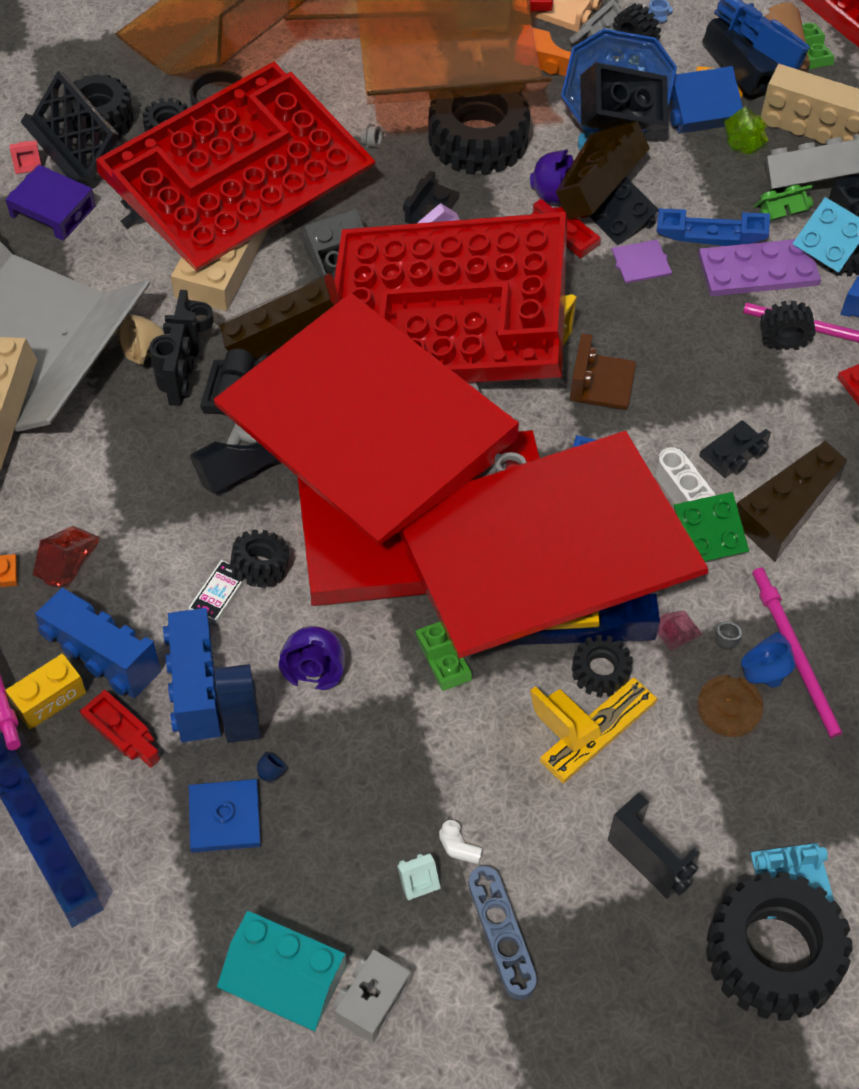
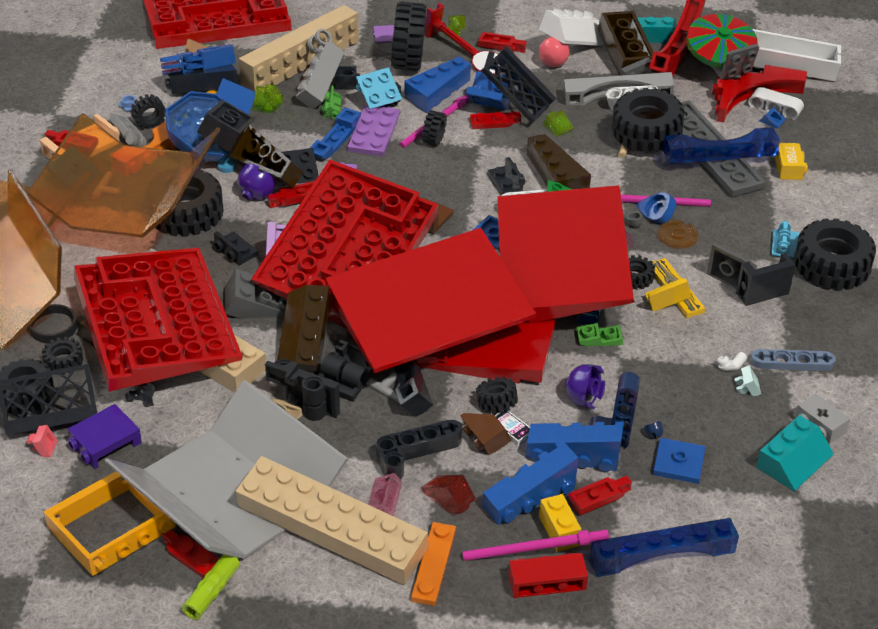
camera: 70 degrees left, 15 degrees down
(49, 494) = (386, 493): none -> clear pink slope
(121, 475) = (416, 442): none -> black beam
(184, 564) = (487, 431): none -> reddish brown slope
(672, 792) = (725, 265): none -> dark grey slope

